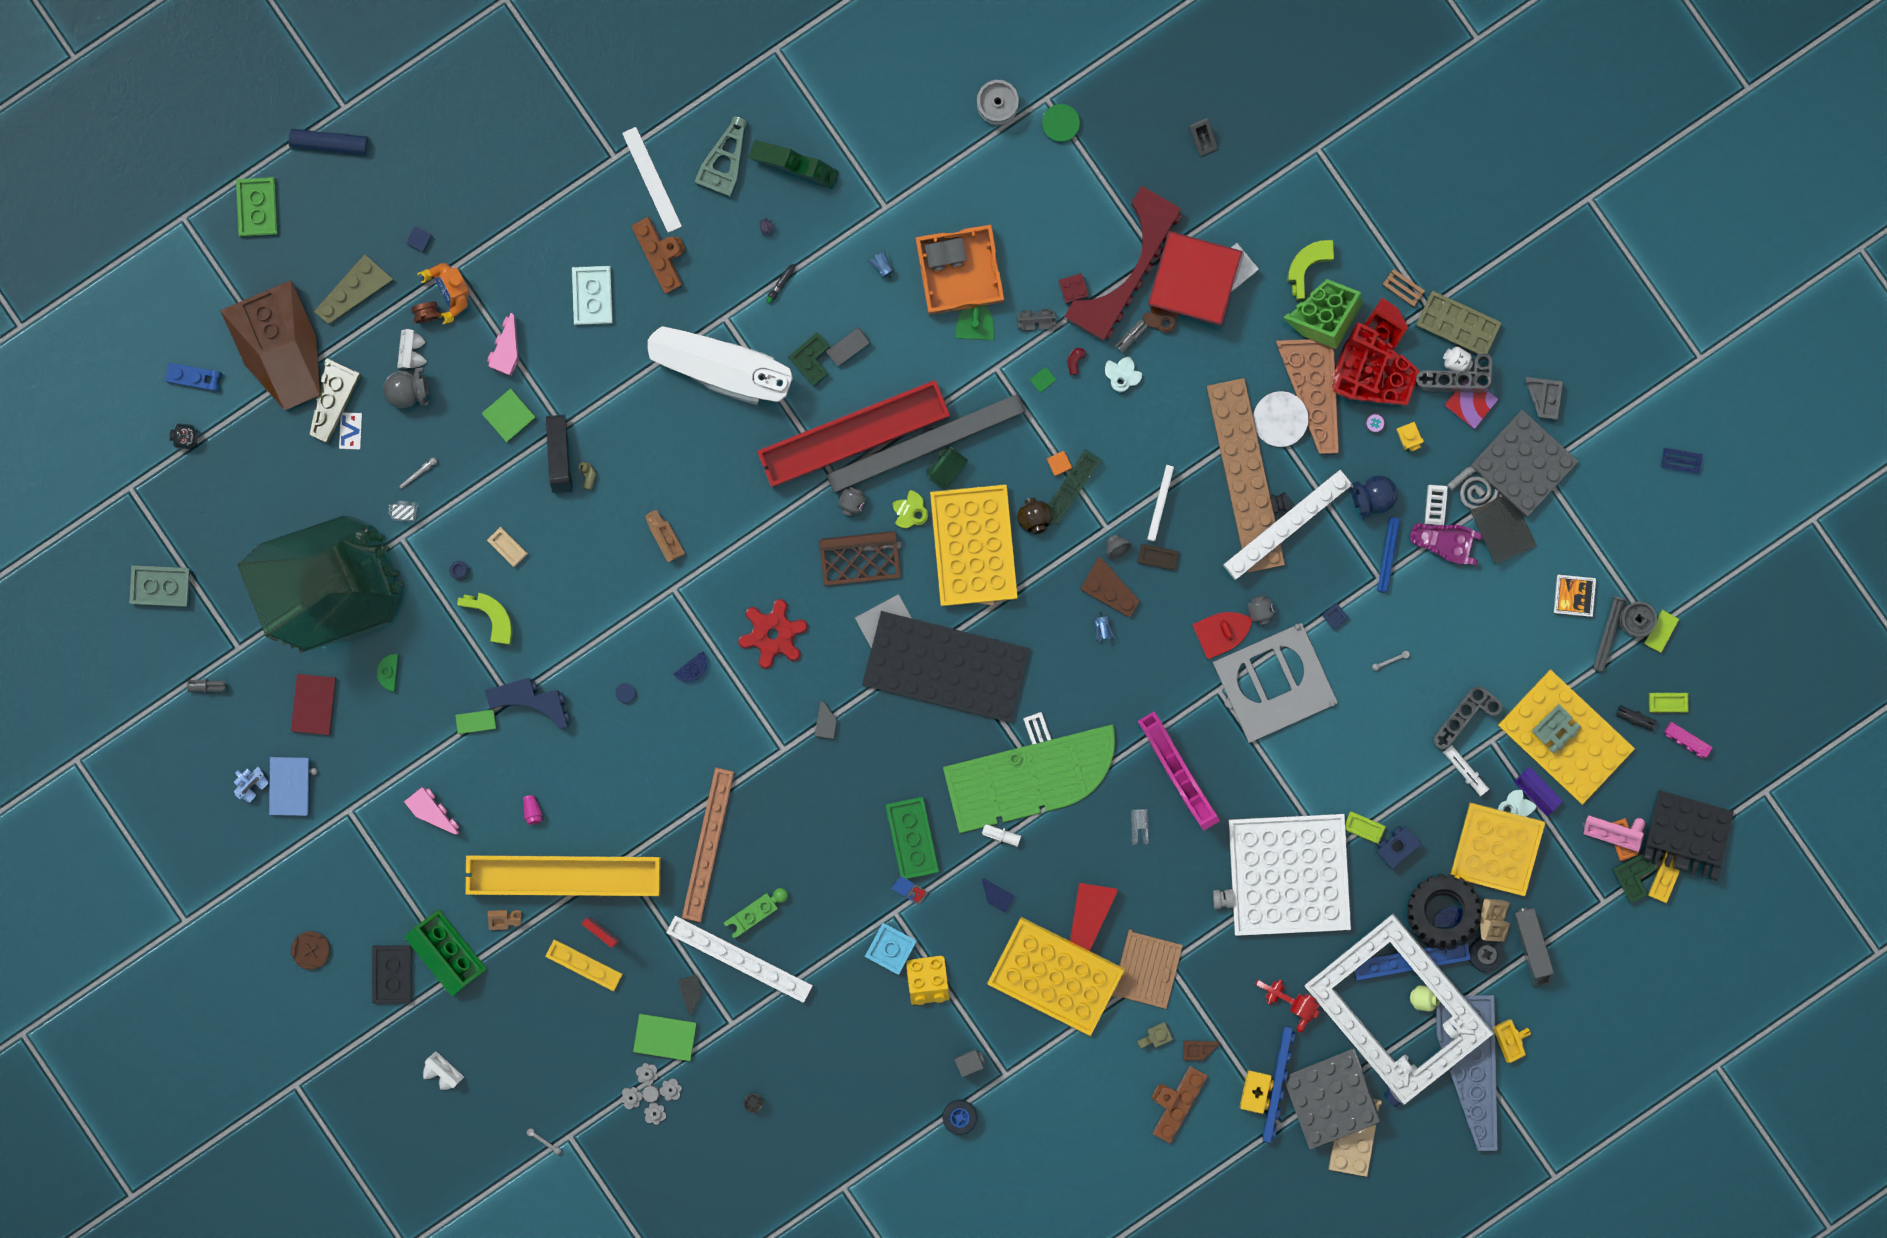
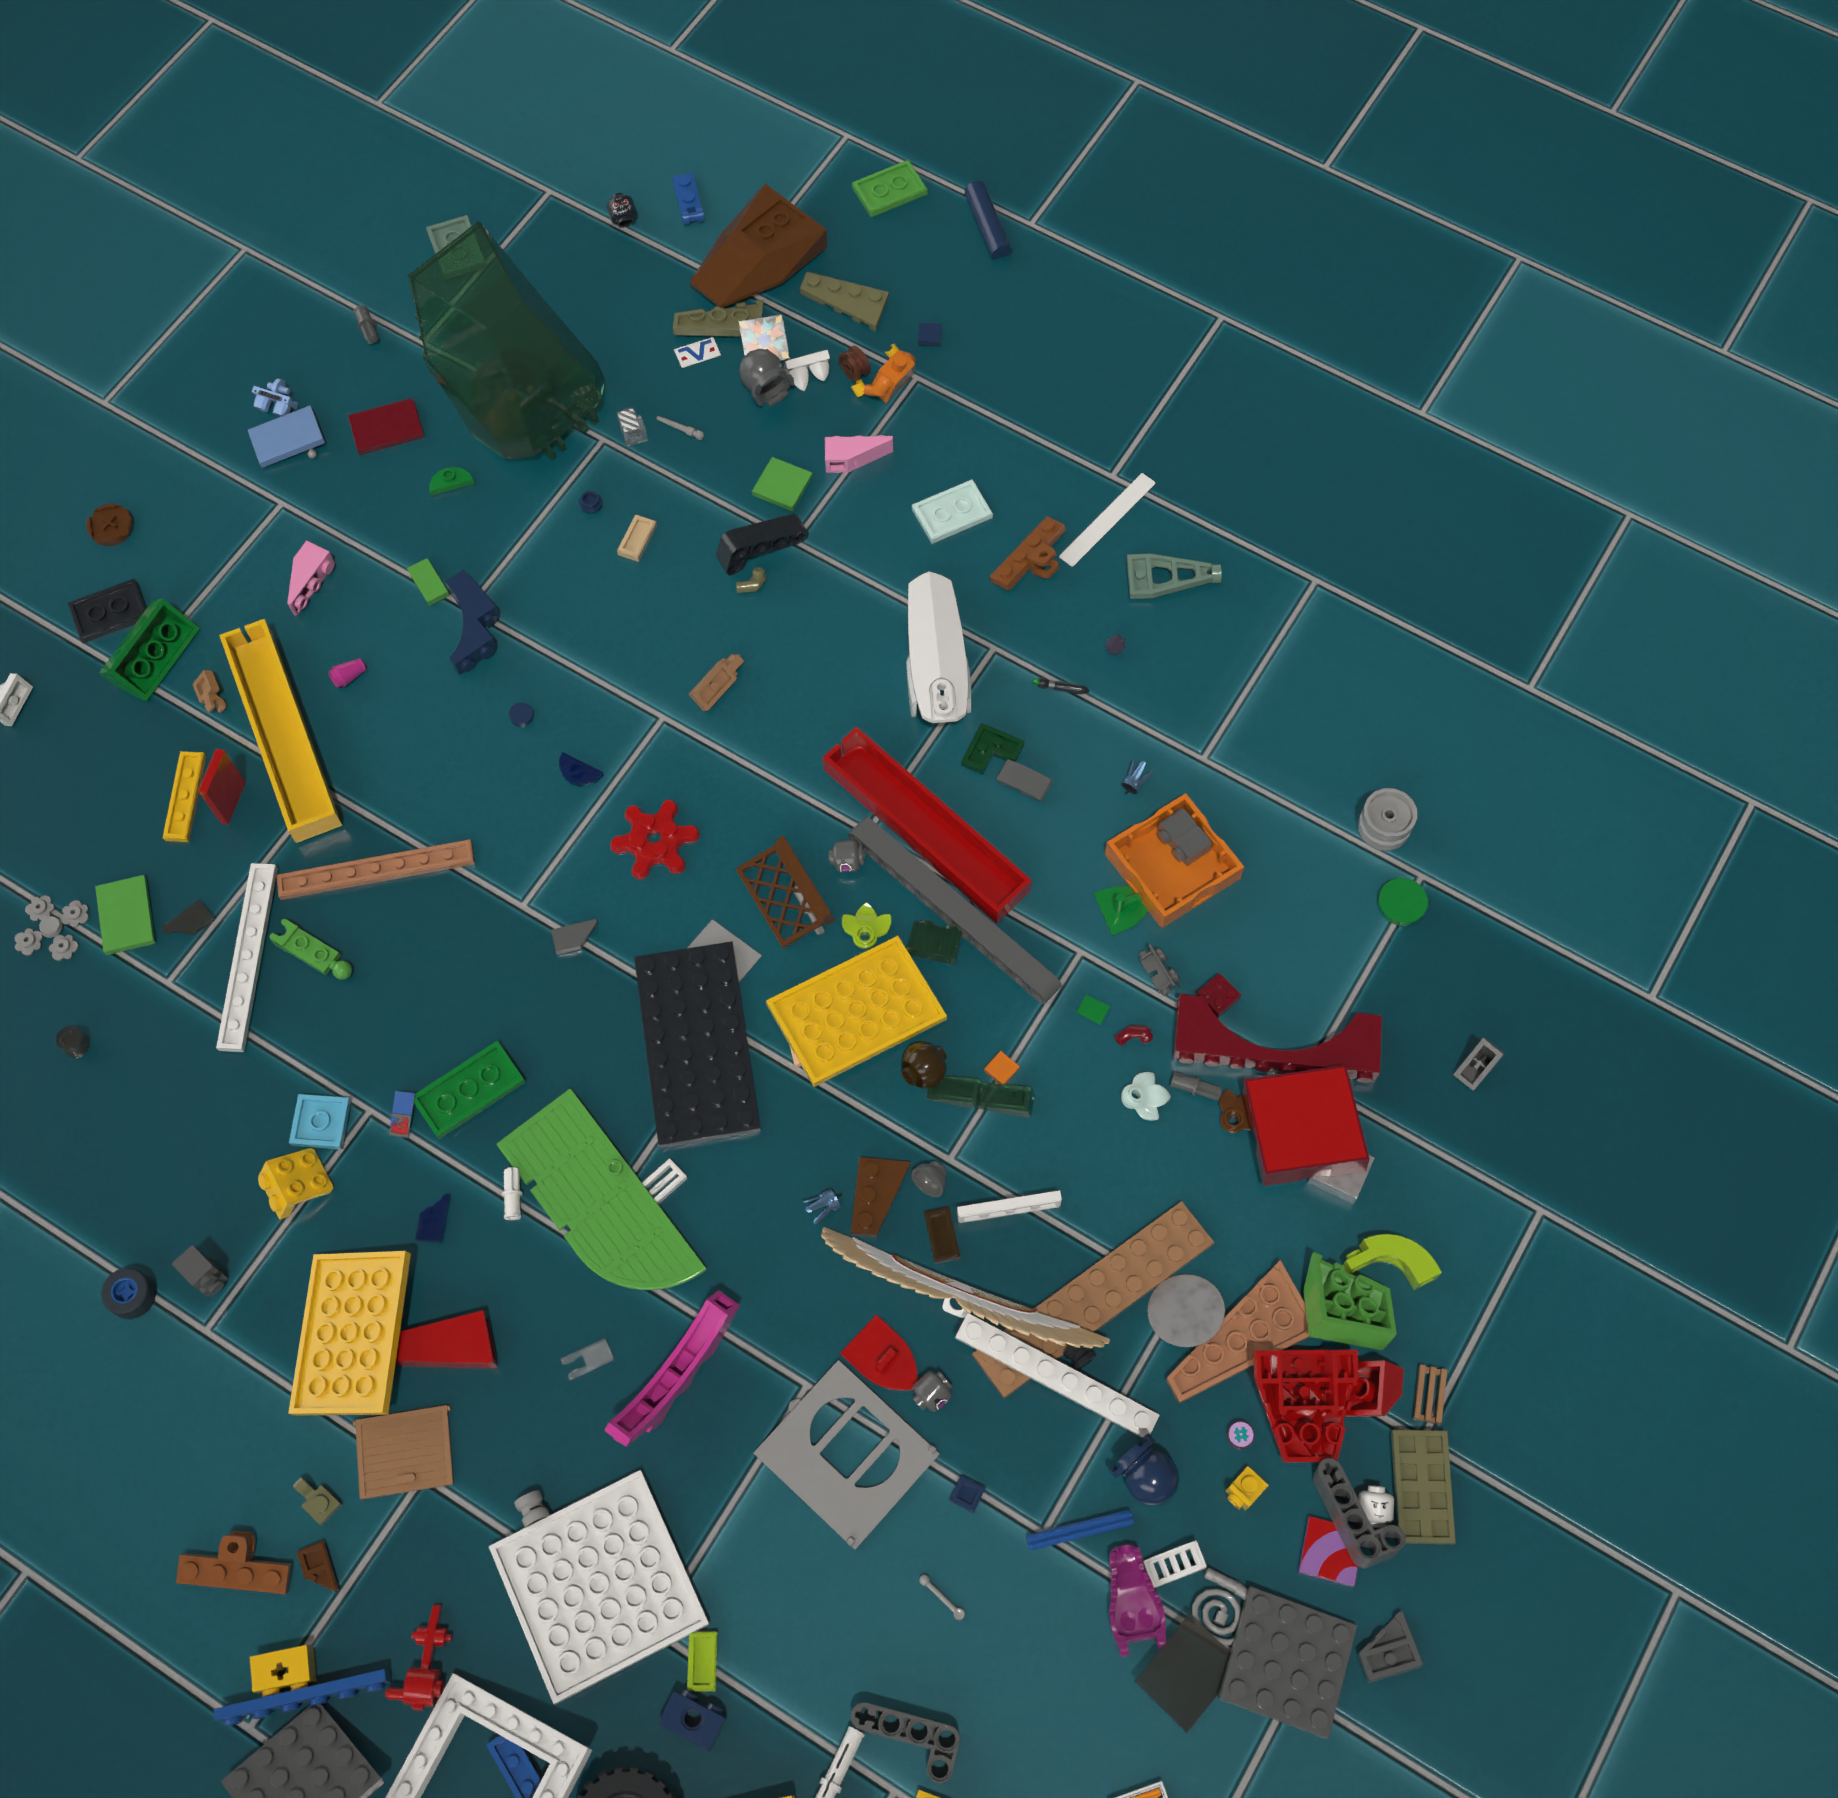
camera: 65 degrees right, 20 degrees down
(369, 374) = (765, 334): none -> tile
(501, 622) = (556, 555): lime arch -> none
(794, 163) = (1203, 649): dark green arch -> none
(1198, 574) = (970, 1299): none -> piece

